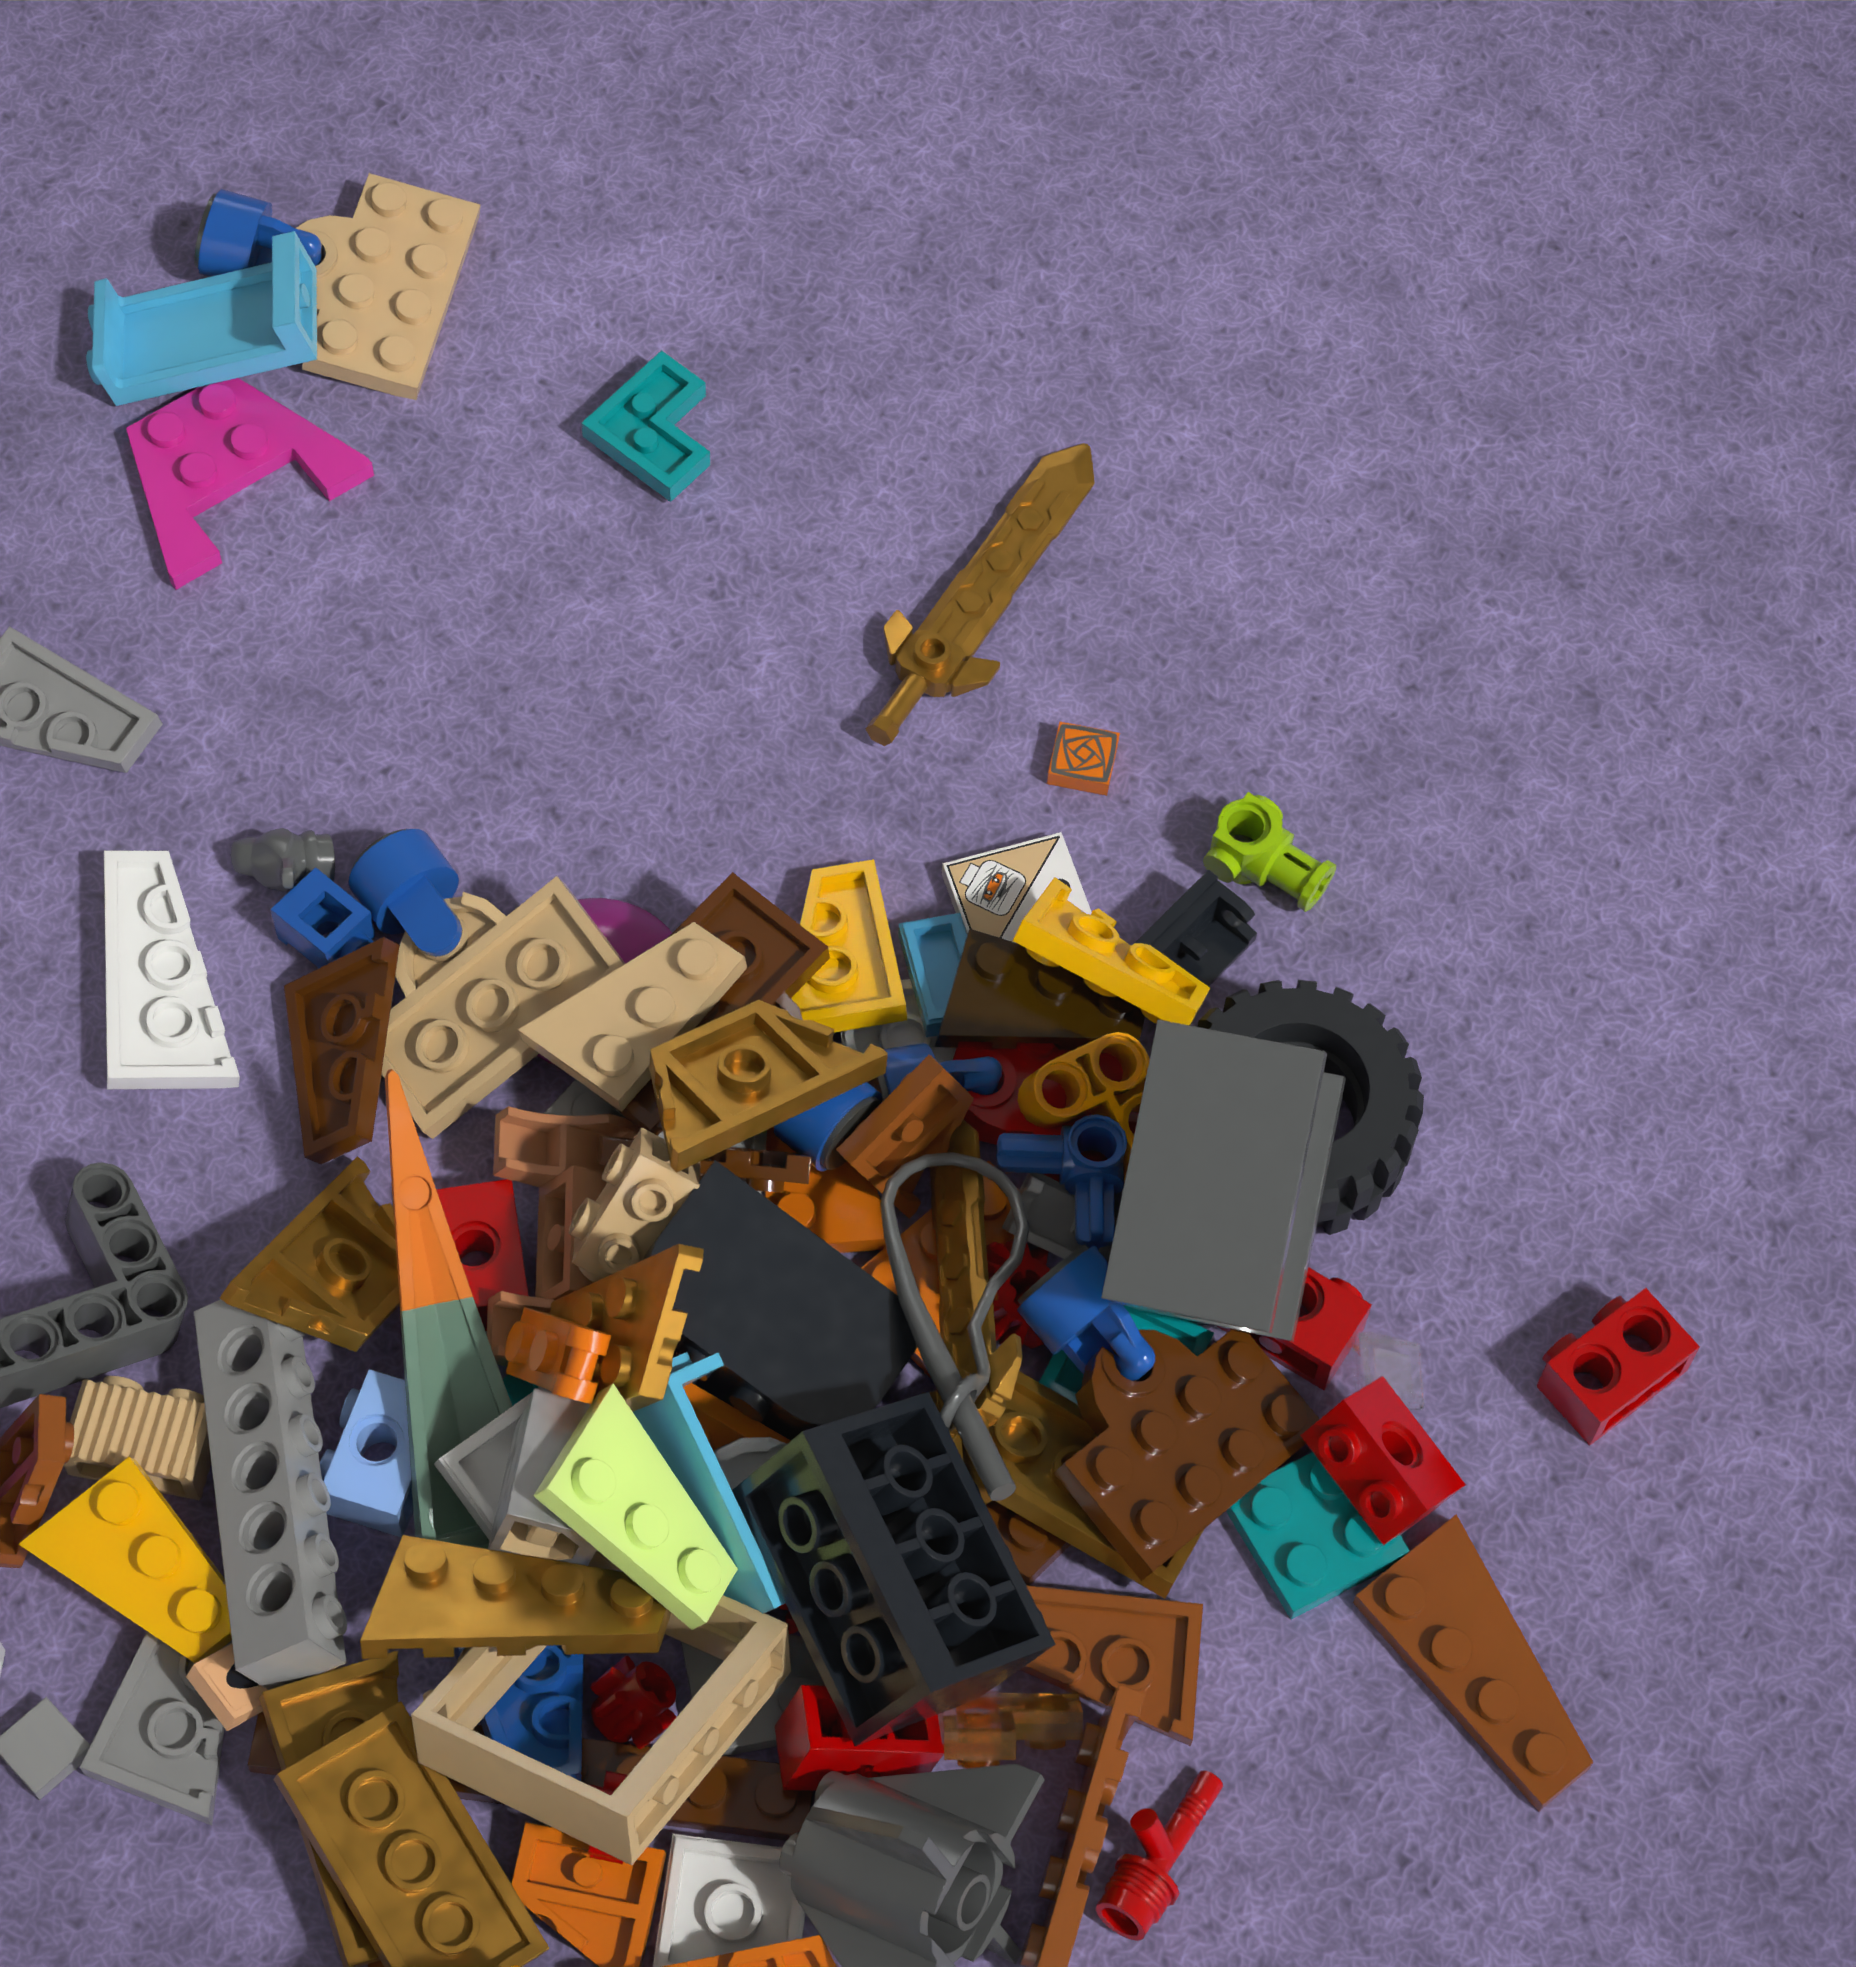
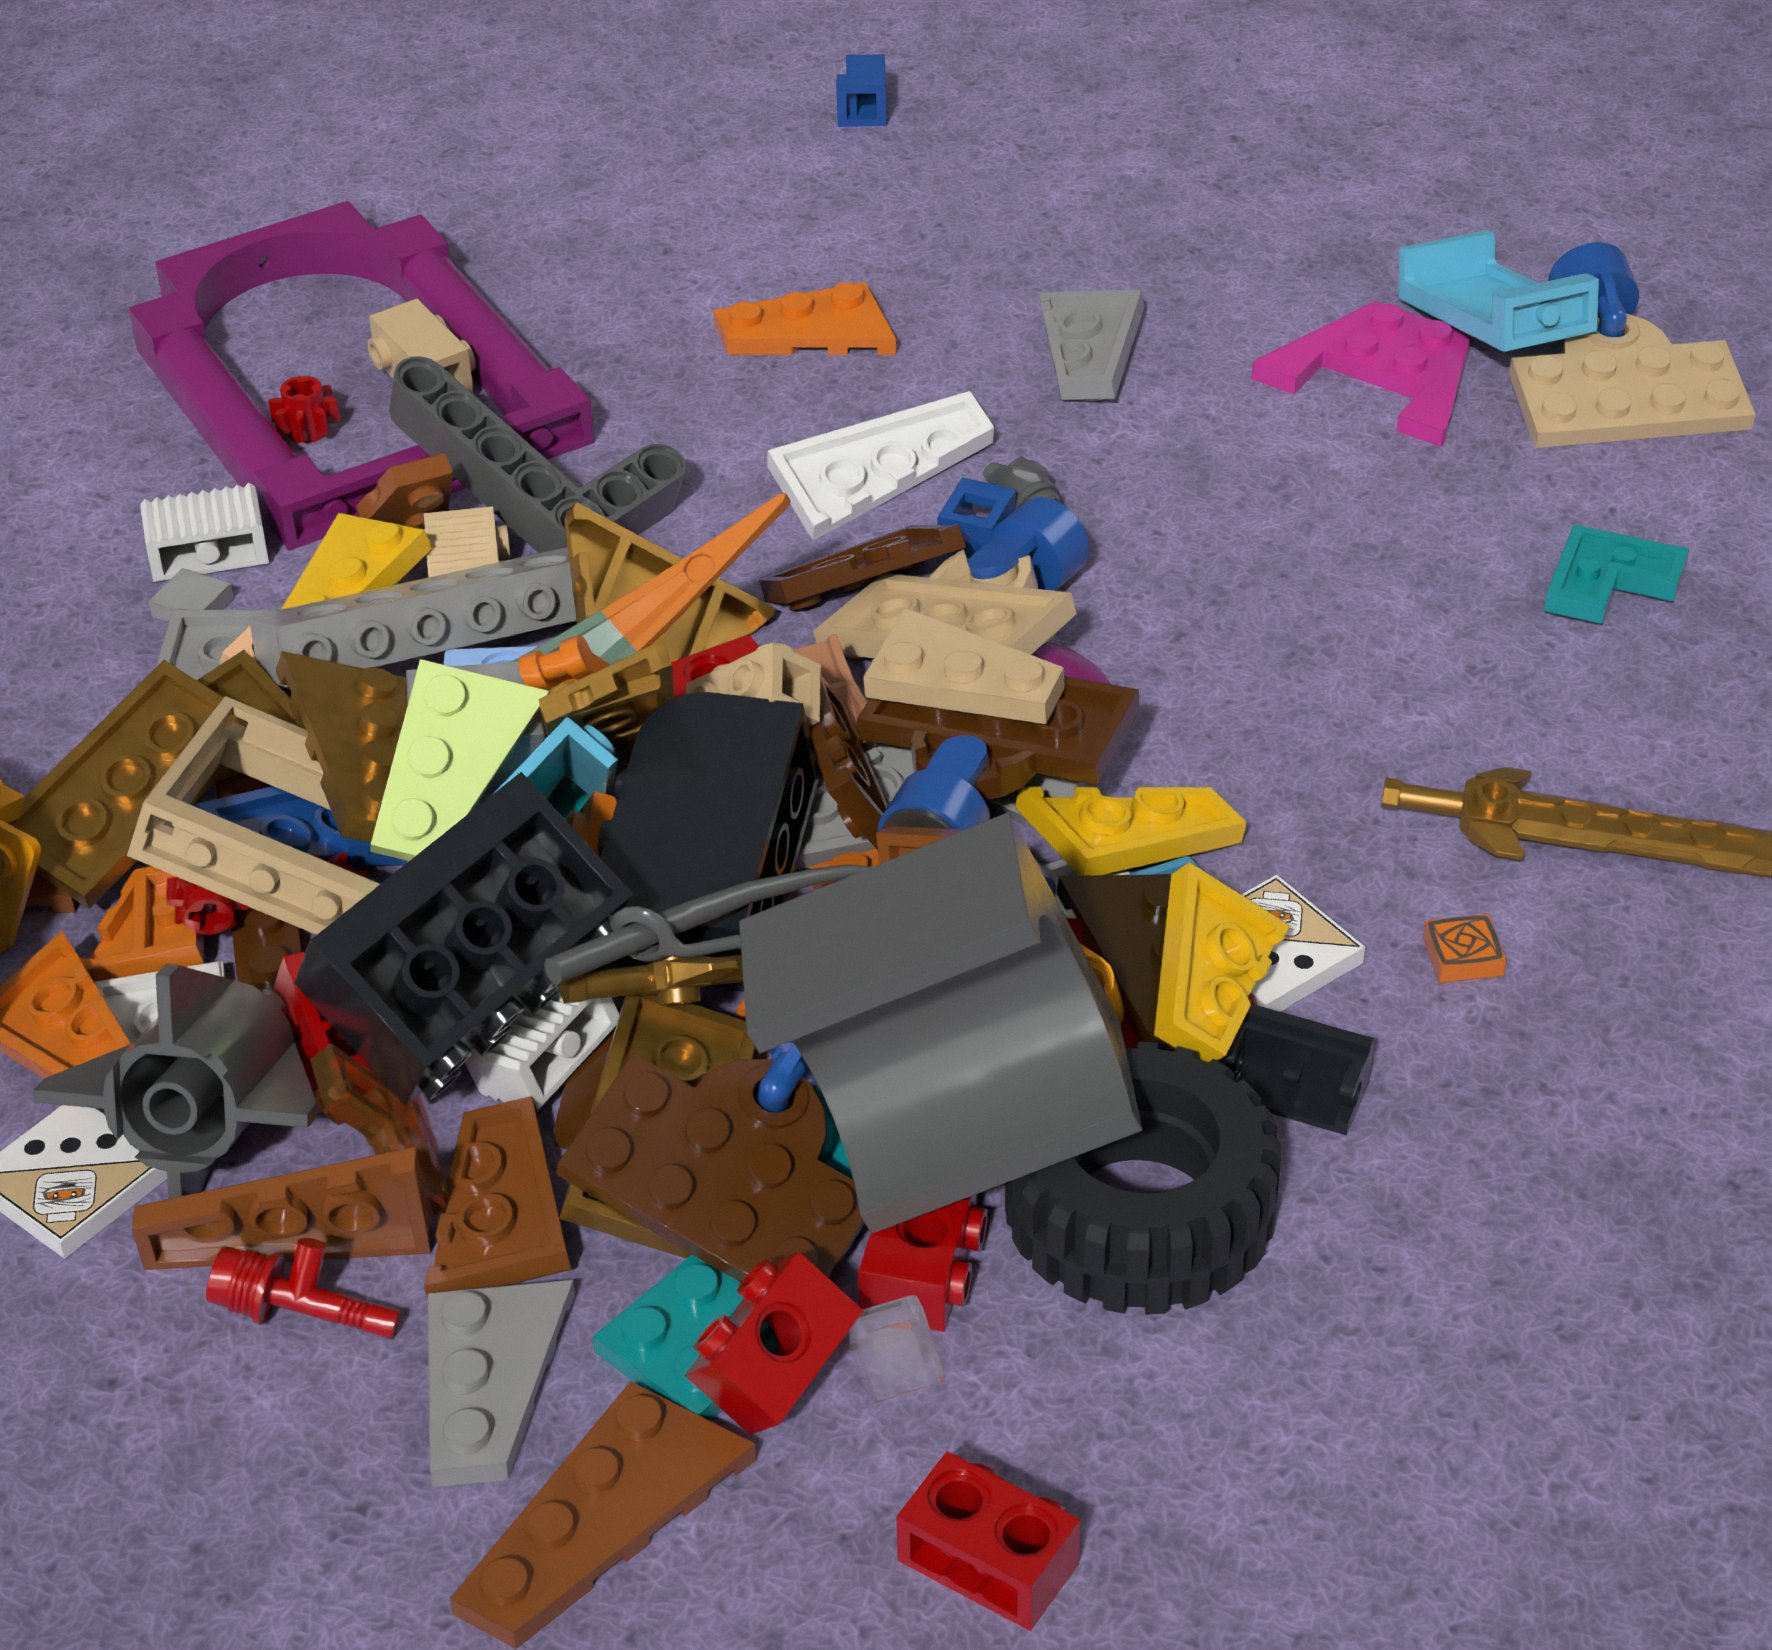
camera: 75 degrees right, 20 degrees down
(748, 1077) = (905, 715): pearl gold wing -> none
(1269, 856) = (1441, 1085): lime connector -> none
(1296, 1716) = (485, 1374): none -> light grey wing

